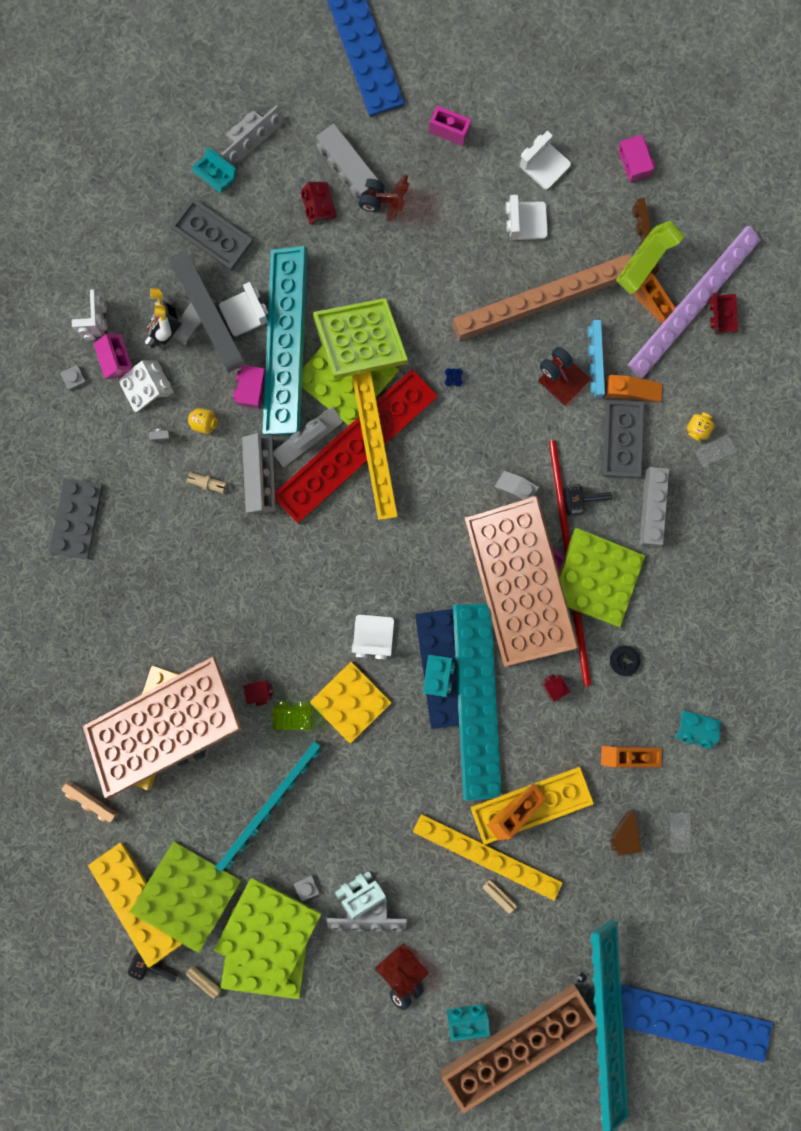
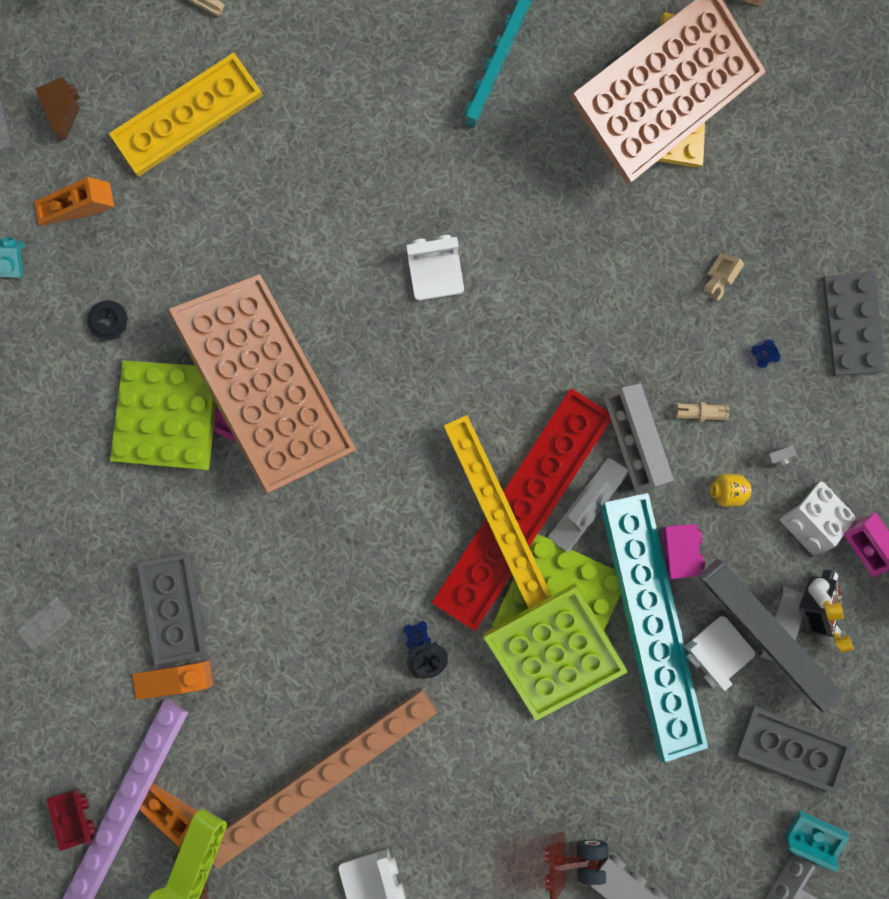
camera: 165 degrees right, 0 degrees up
(142, 509) = (769, 347): none -> clear blue plate
(160, 580) = (723, 271): none -> tan plate
(258, 692) = (561, 164): dark red brick -> none
(292, 717) = (510, 145): clear neon green brick -> none
(318, 202) = (663, 833): dark red bracket -> none
(350, 702) = (442, 183): yellow plate -> none
(437, 639) = (338, 253): dark blue plate -> none
(437, 676) = (340, 237): teal bracket -> none
(454, 353) = (425, 669): none -> black gear
(477, 702) = (284, 223): teal plate -> none
(487, 857) = (226, 41): yellow plate -> none
(516, 486) = (298, 507): light grey slope -> none
(516, 813) = (202, 93): orange slope -> none
(555, 687) = (188, 262): dark red brick -> none
(562, 376) = (271, 671): clear red plate -> none
(566, 541) = (215, 450): red piece -> none
(575, 499) = (217, 511): black piece -> none
(596, 367) = (234, 719): medium azure plate -> none
(654, 507) = (110, 526): light grey brick -> none
(700, 426) = (71, 651): yellow head -> none

